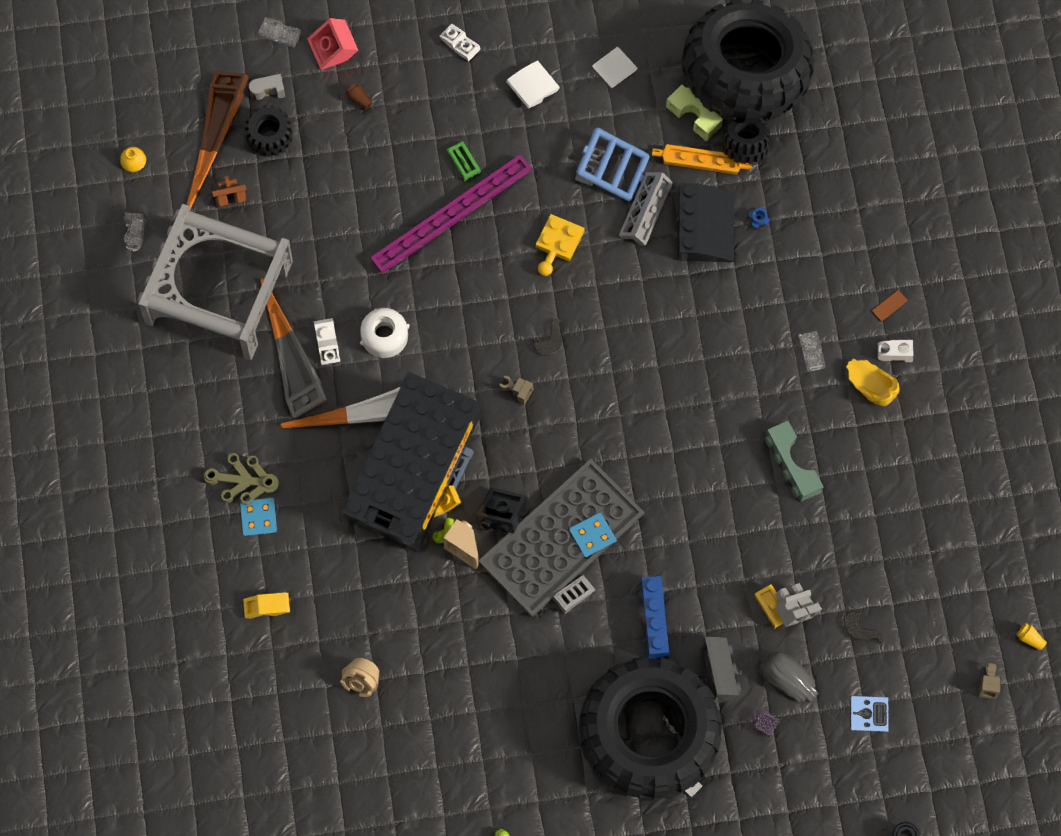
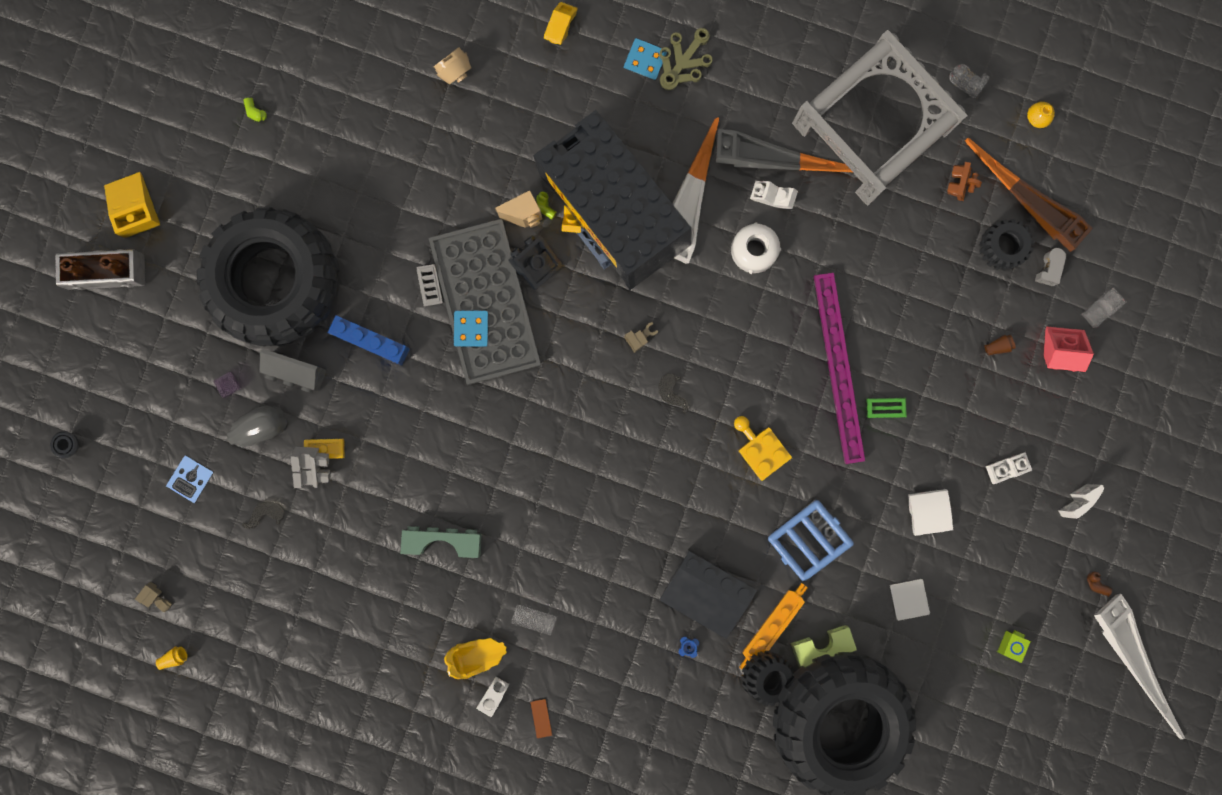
camera: 120 degrees right, 15 degrees up
(650, 207) = (750, 550): light grey fence -> none

